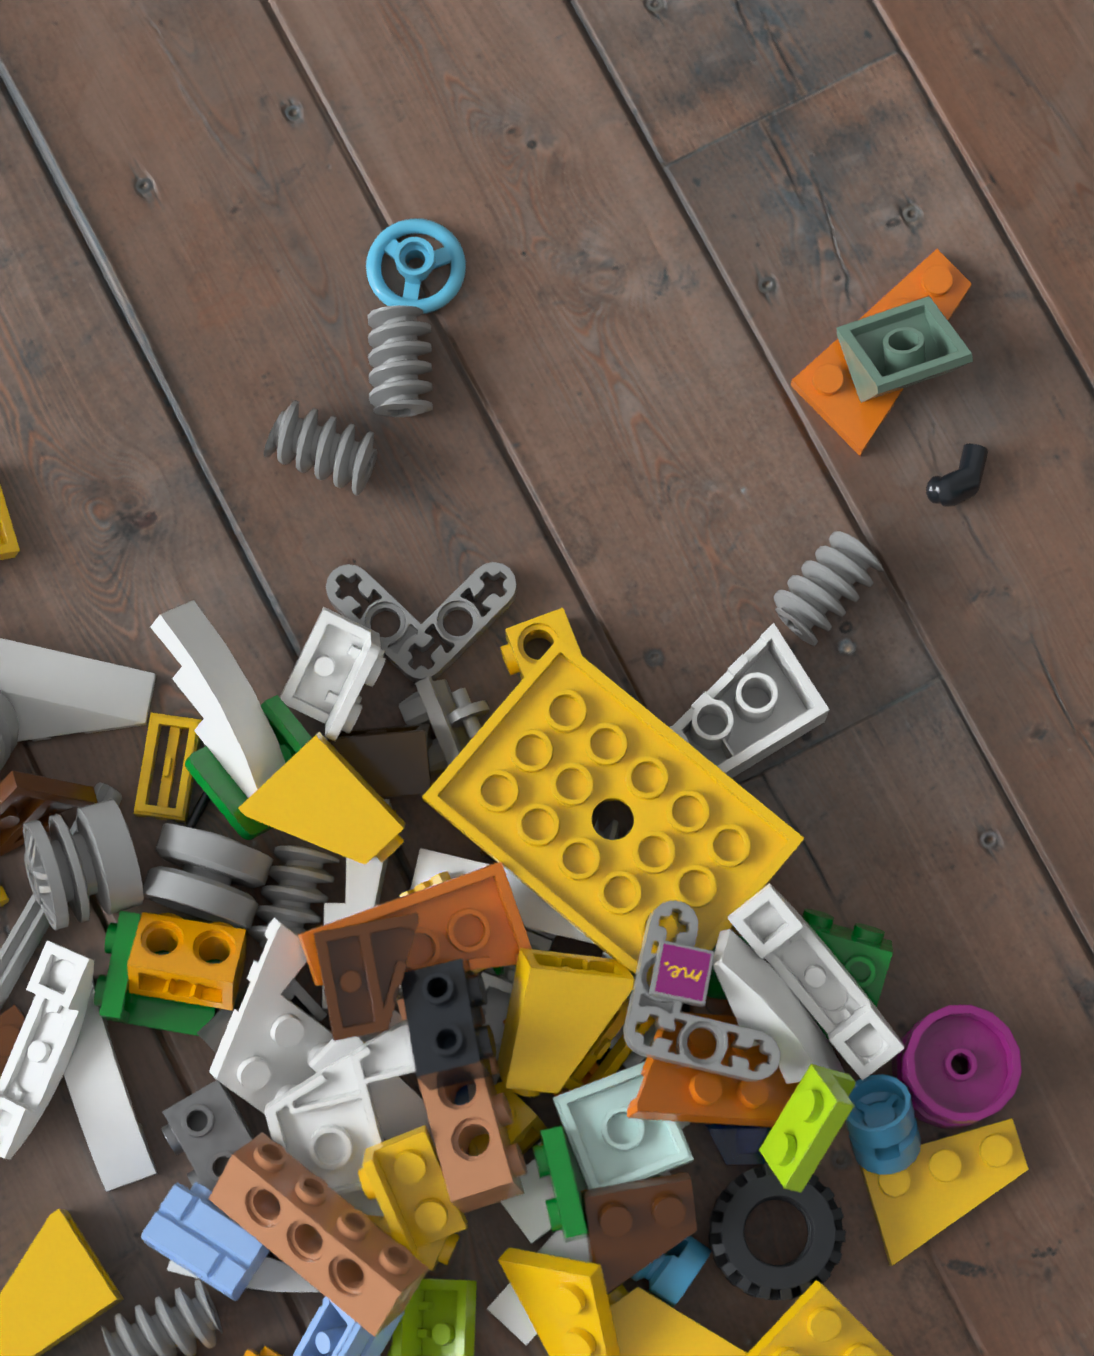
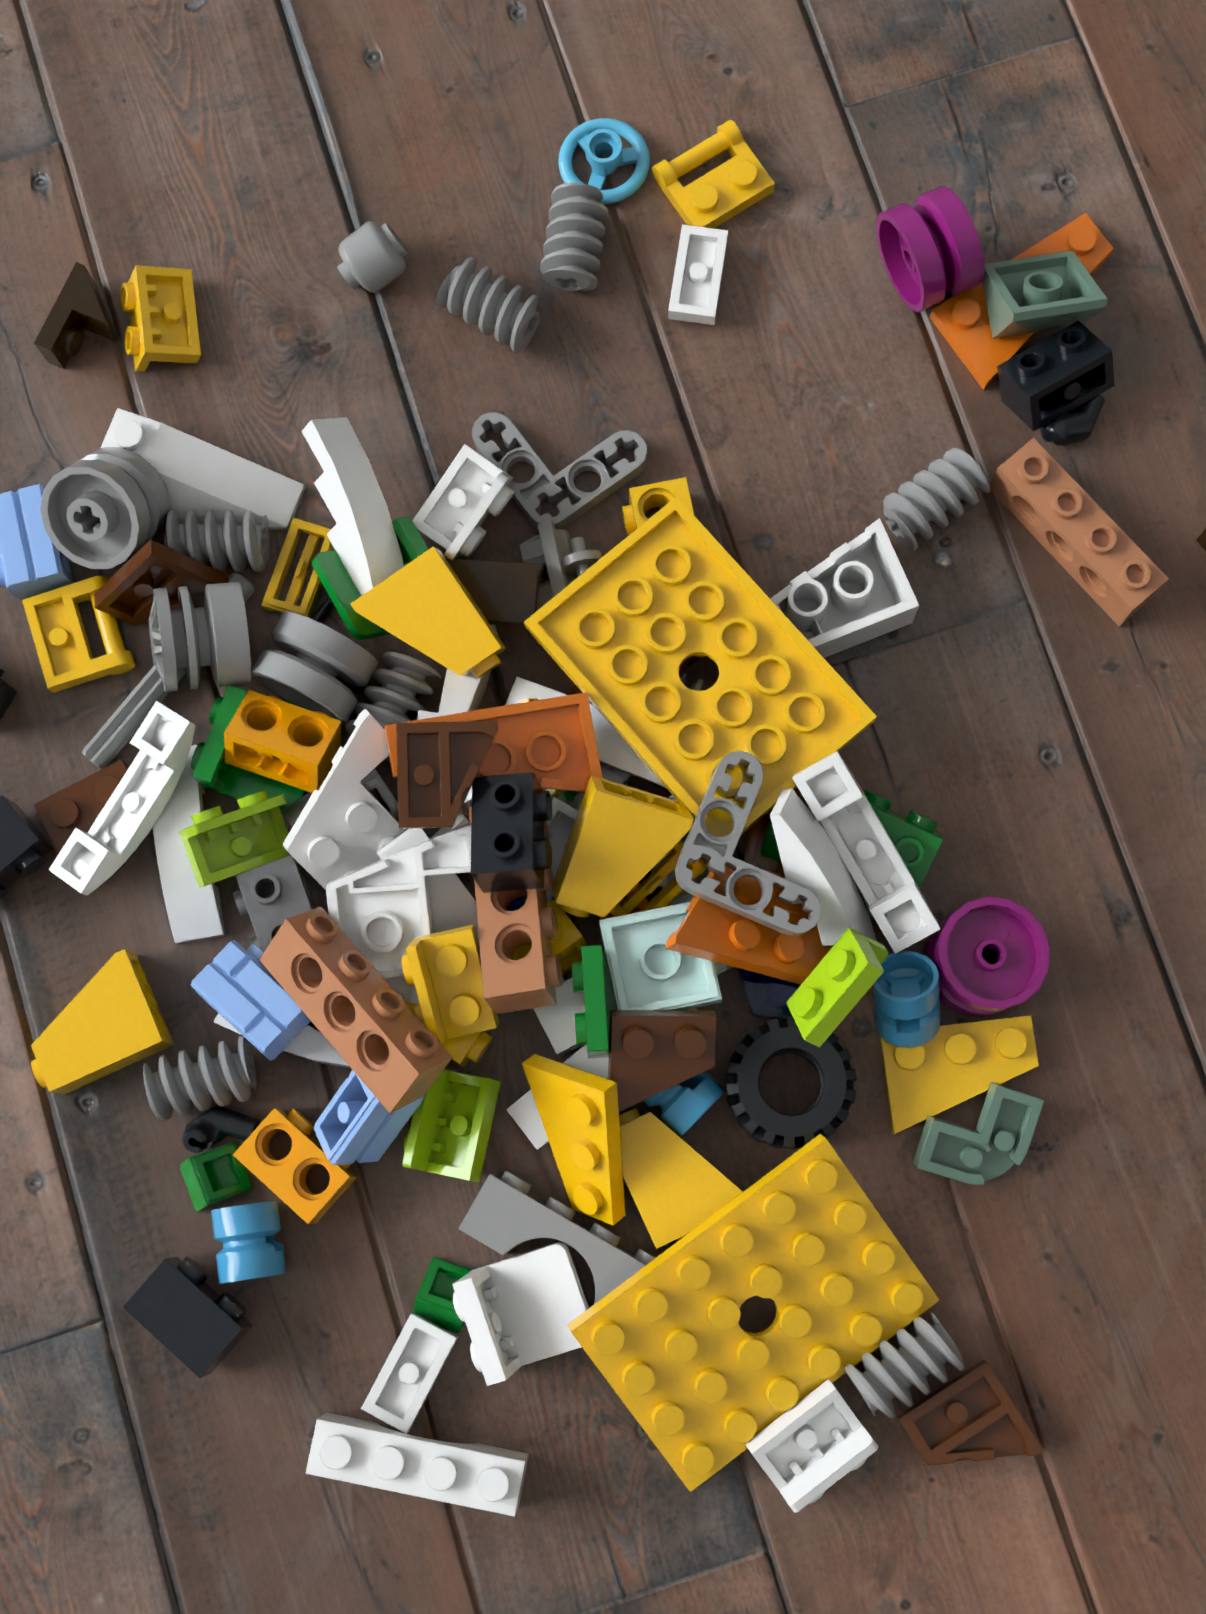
camera: 15 degrees right, 0 degrees up
(76, 752) = (220, 542): none -> light grey piece
(158, 1073) = (237, 840): none -> lime bracket
(186, 414) = (372, 257): none -> light grey head
(538, 379) = (698, 274): none -> white plate
(547, 281) = (722, 190): none -> yellow plate
(681, 973) = (739, 819): magenta tile -> none
(779, 320) = (930, 248): none -> magenta wheel
(932, 434) = (1056, 375): none -> black brick
(980, 599) = (1077, 532): none -> nougat brick
(991, 1266) = (990, 1149): none -> sand green plate

